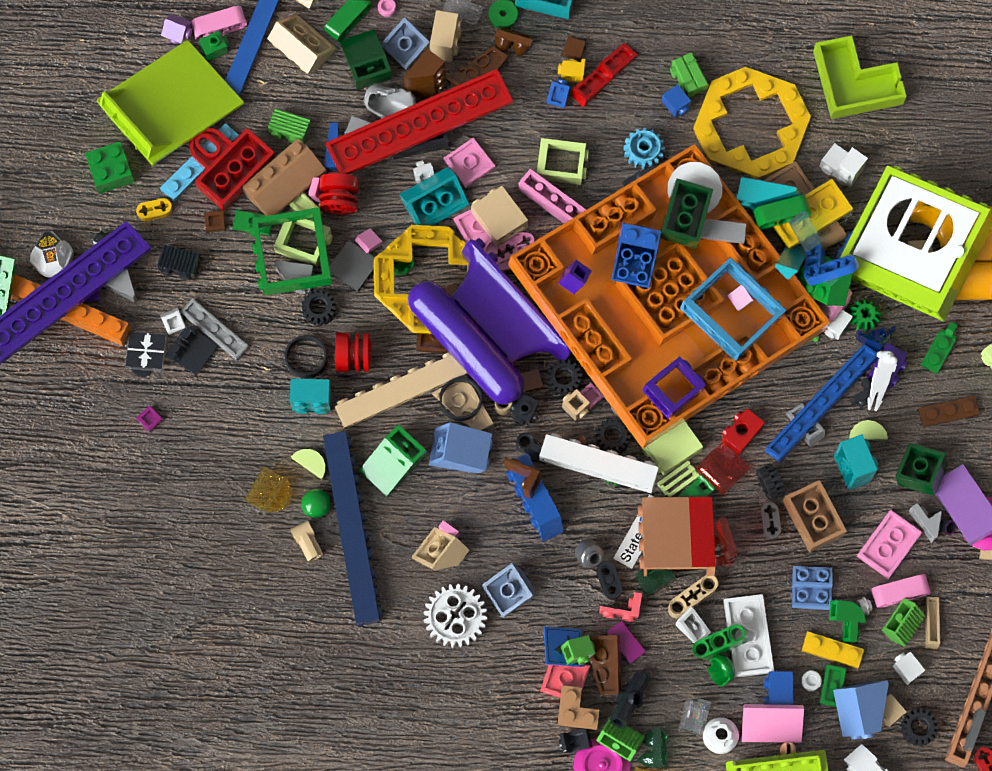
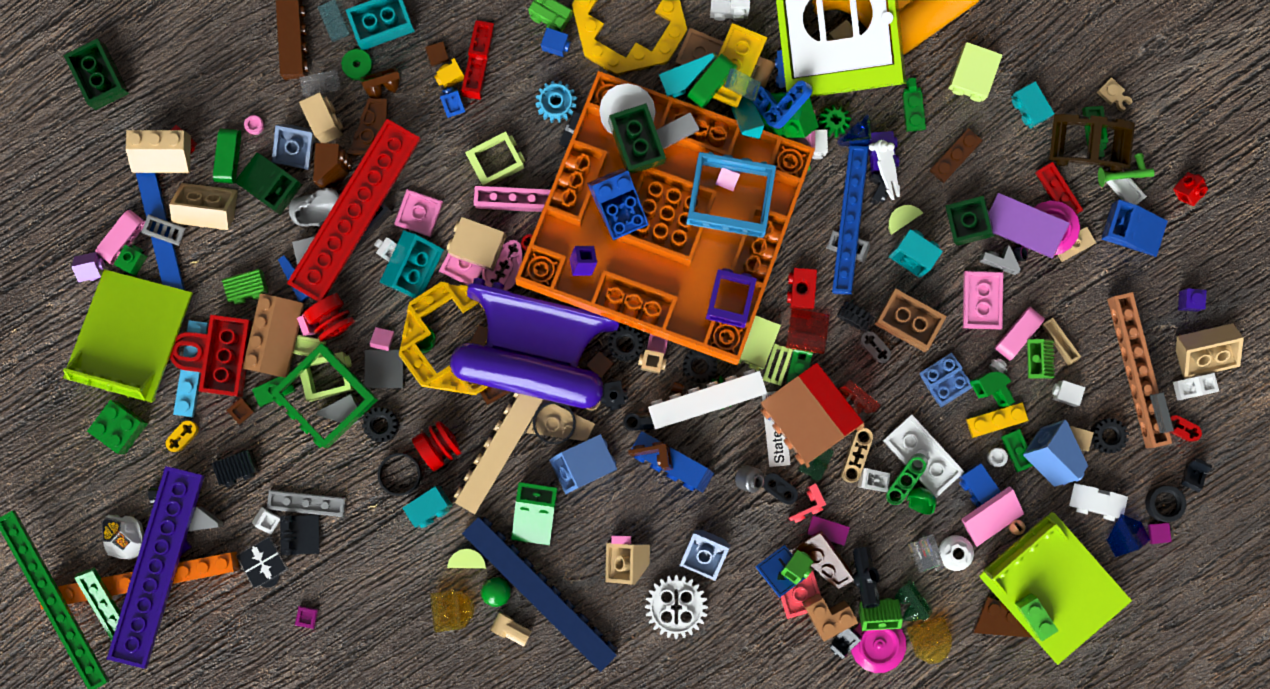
camera: 30 degrees left, 10 degrees up
(253, 25) = (148, 223): none -> light grey slope

